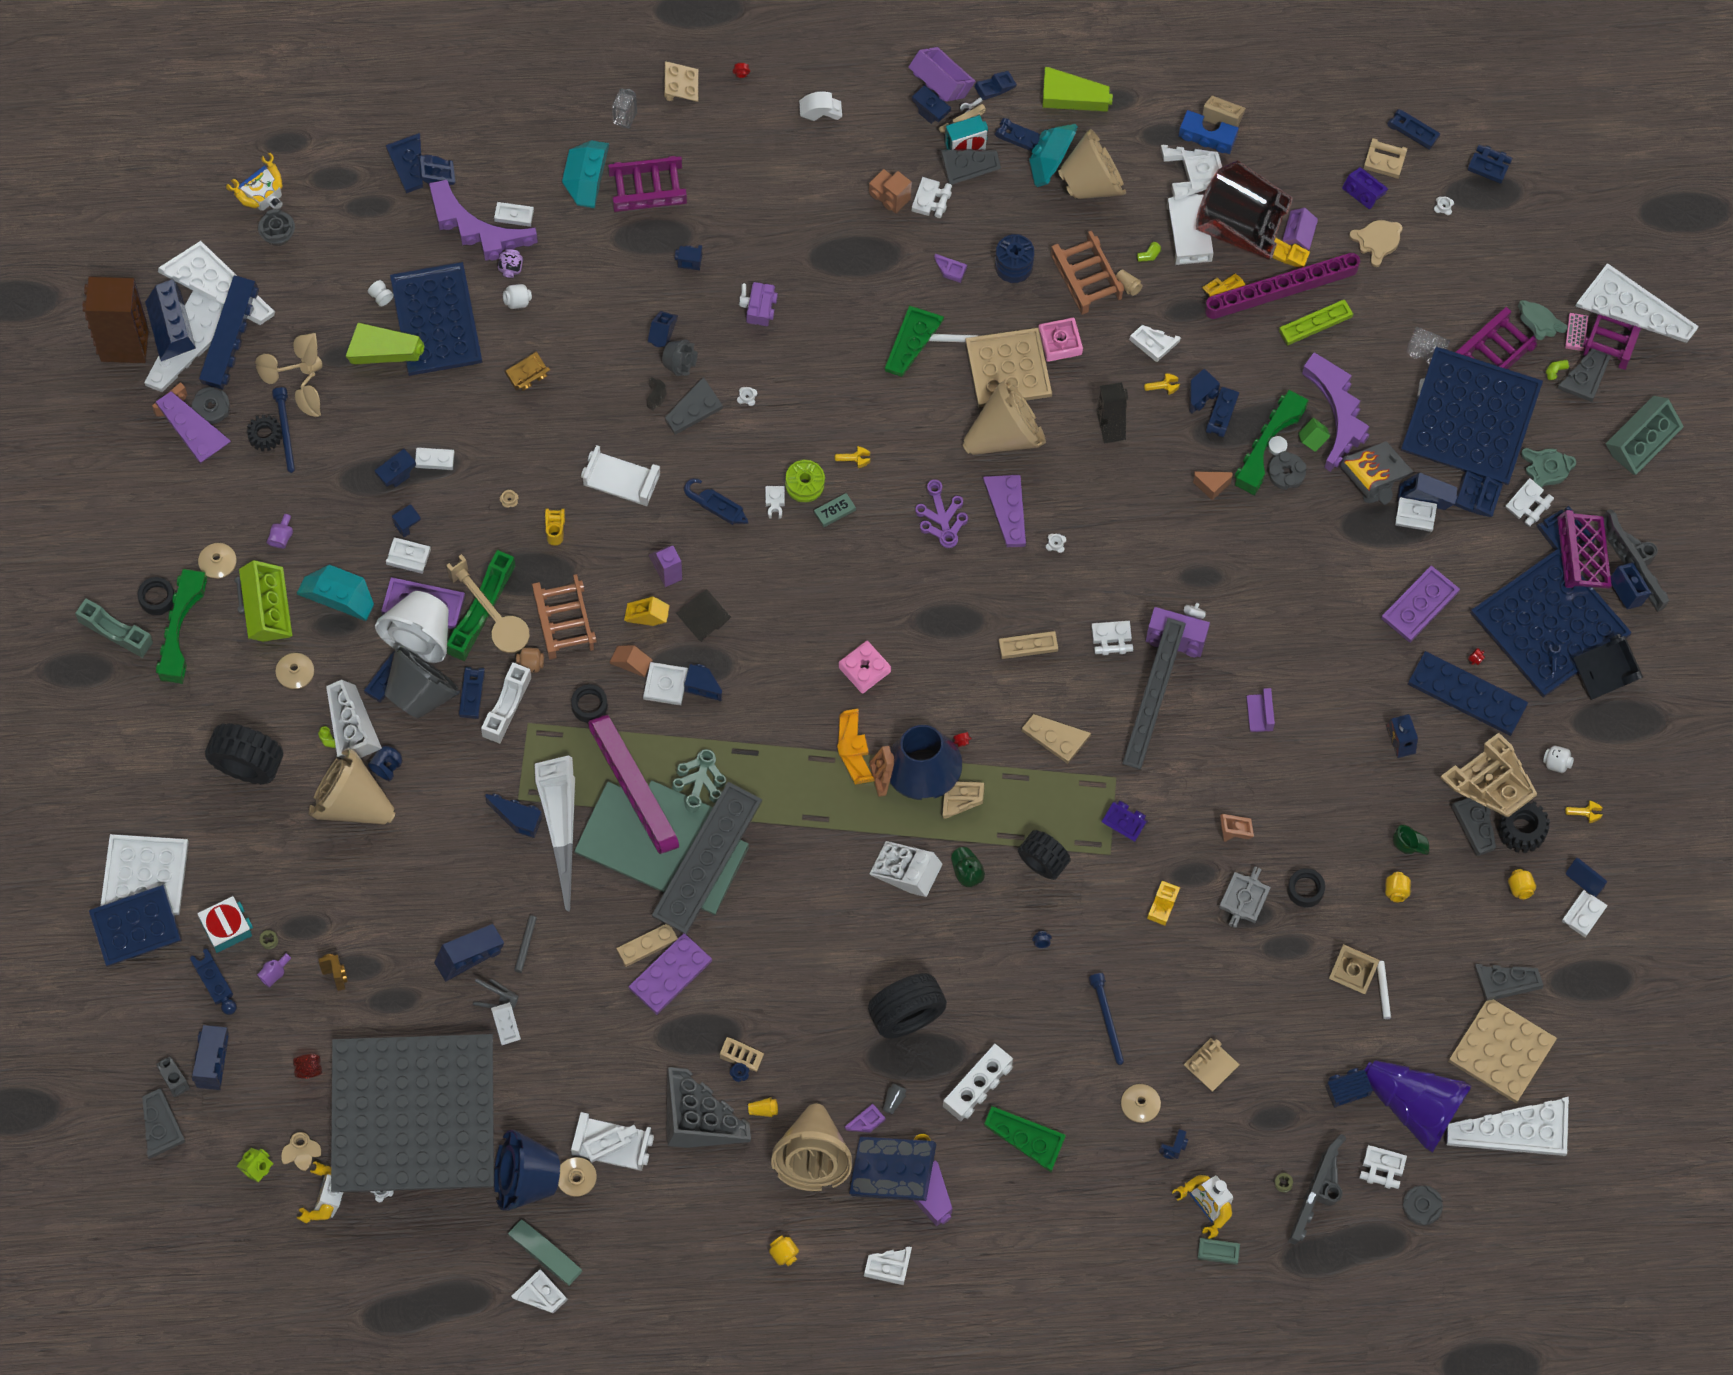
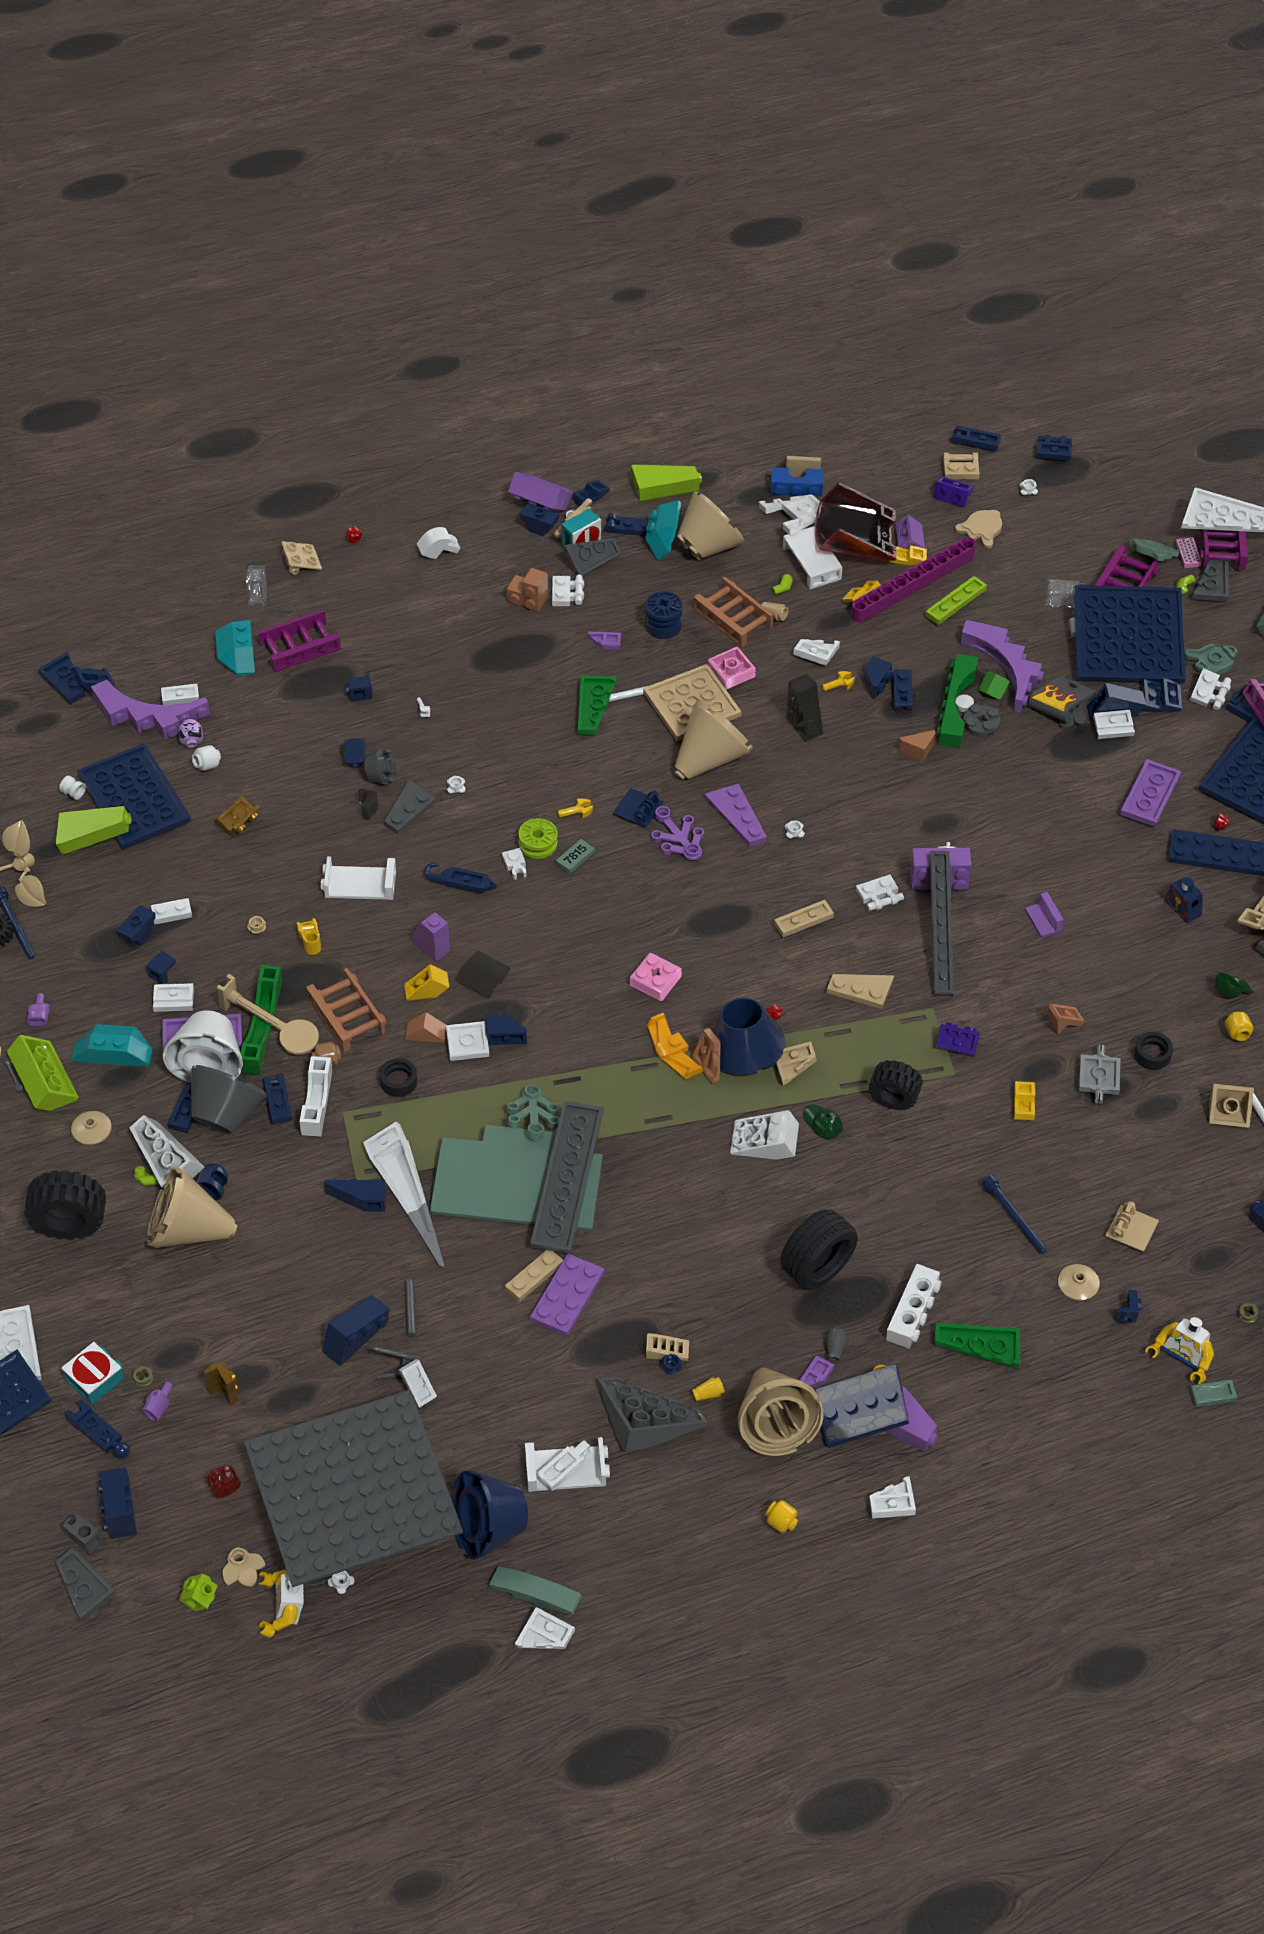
camera: 15 degrees left, 15 degrees down
(577, 1167) = (545, 1500): tan dish -> none
(633, 784) = (470, 1131): magenta beam -> none
(761, 303) = (441, 708): medium lavender brick -> none
(914, 472) = (639, 807): none -> dark blue hinge
(1042, 939) = (922, 1163): dark blue plate -> none

